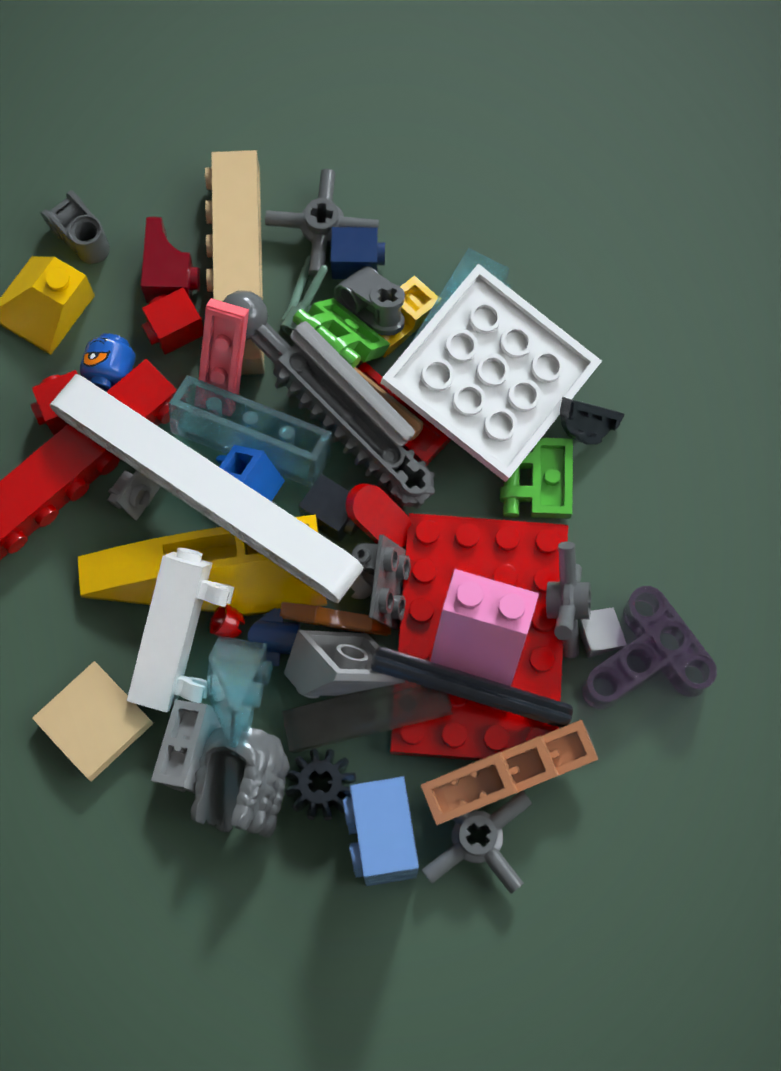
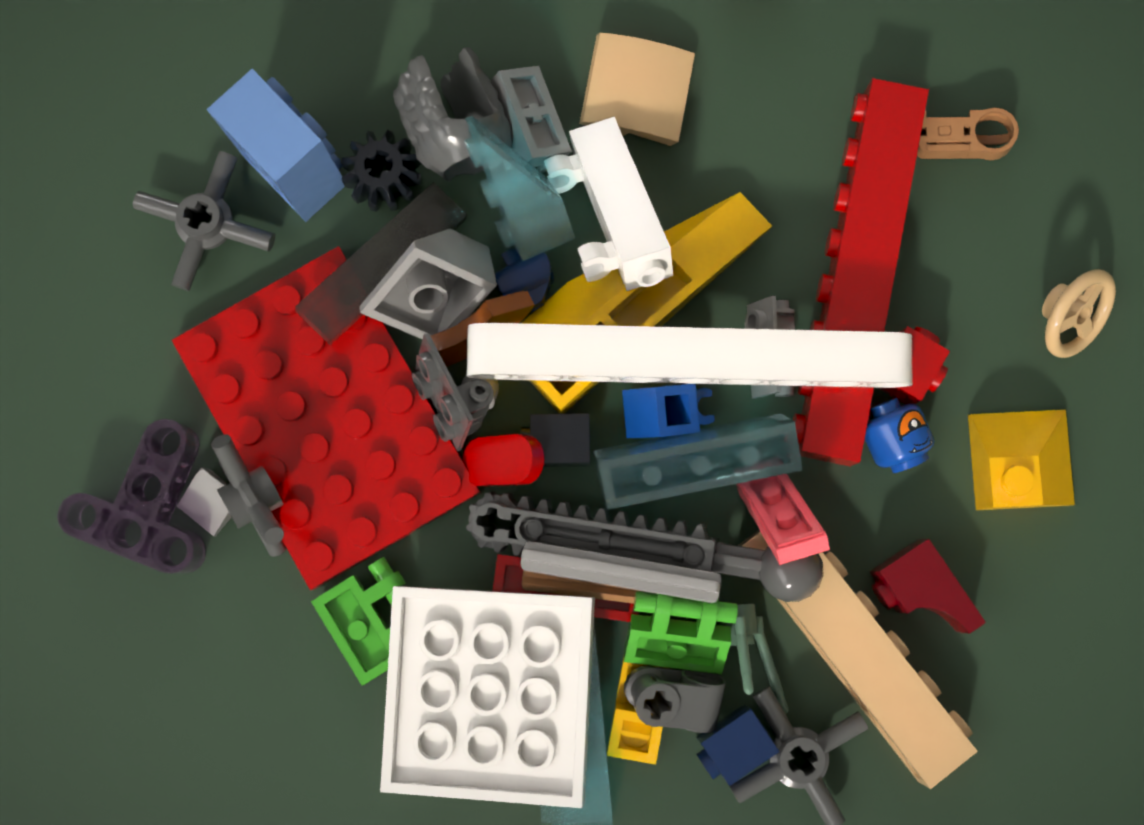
camera: 145 degrees right, 10 degrees up
(74, 224) = (1058, 568): dark grey piece -> none
(172, 321) = (871, 530): red brick -> none
(226, 621) = (570, 256): red hinge -> none
(471, 687) = (289, 340): black axle -> none
(483, 627) = (309, 402): bright pink slope -> none
(509, 772) = (206, 294): nougat slope -> none
(587, 421) = (359, 714): black tile -> none

